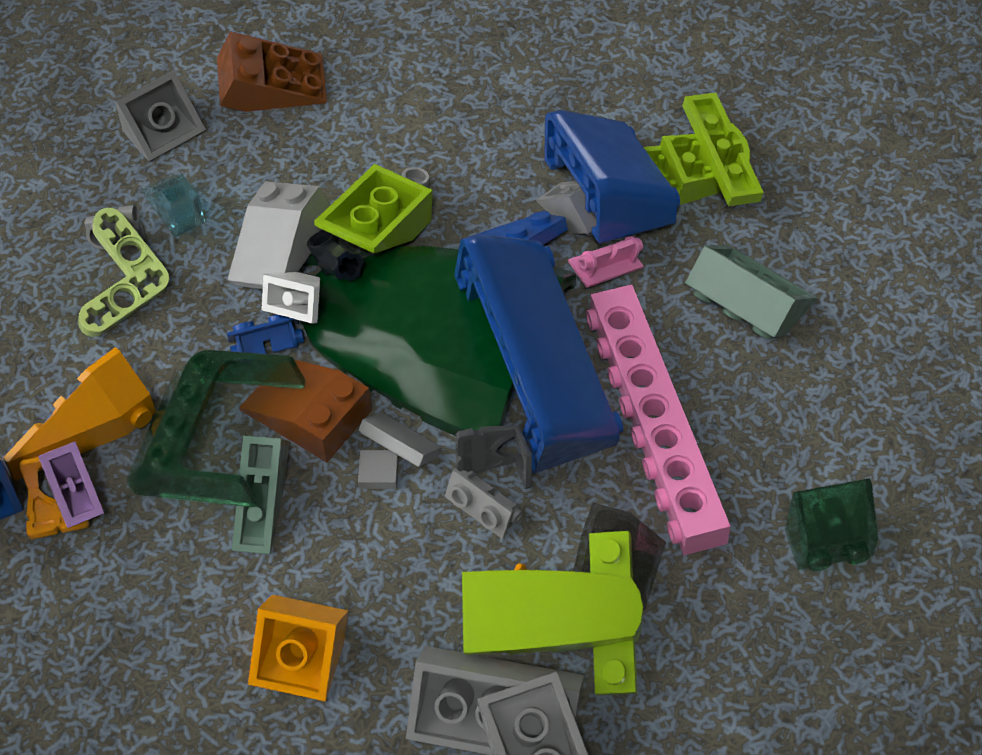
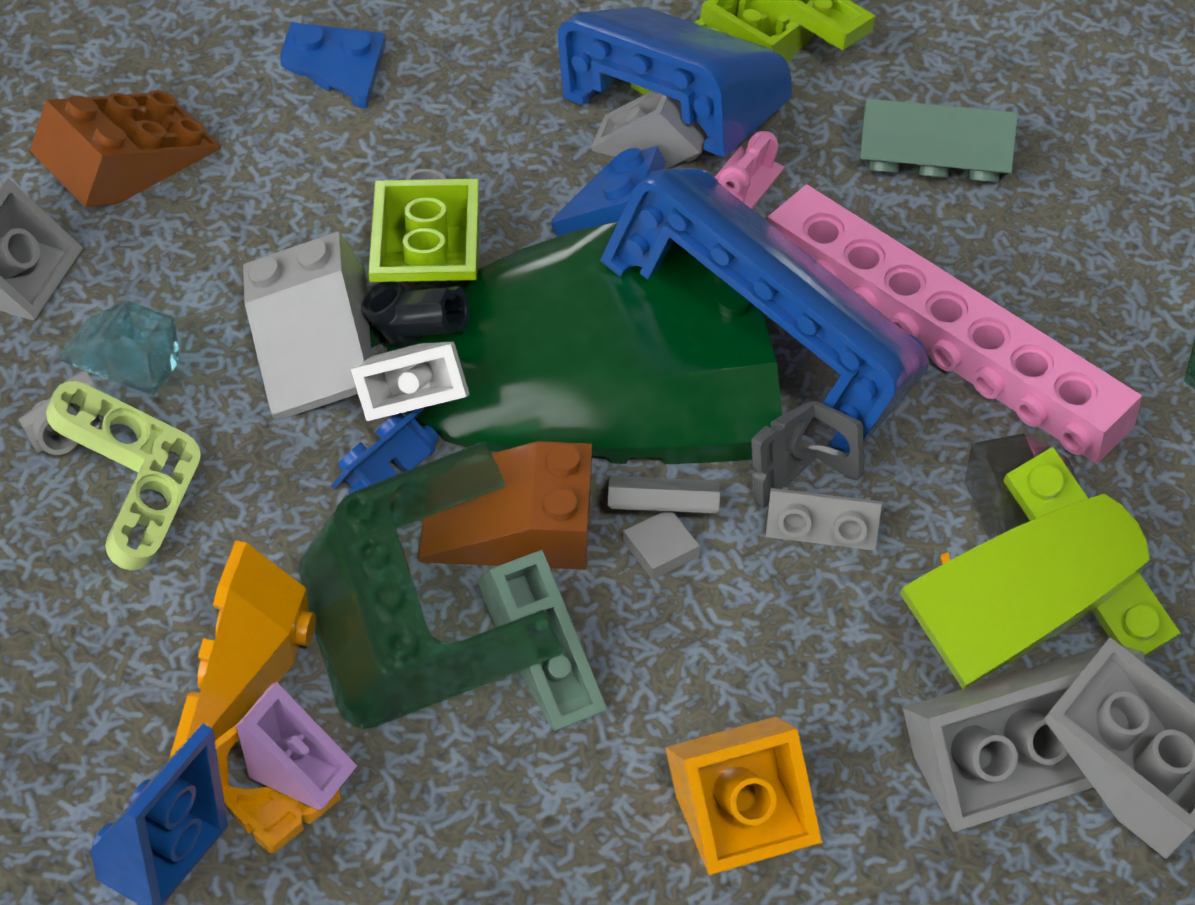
camera: 35 degrees left, 5 degrees down
(431, 75) = (335, 58): none -> blue wing

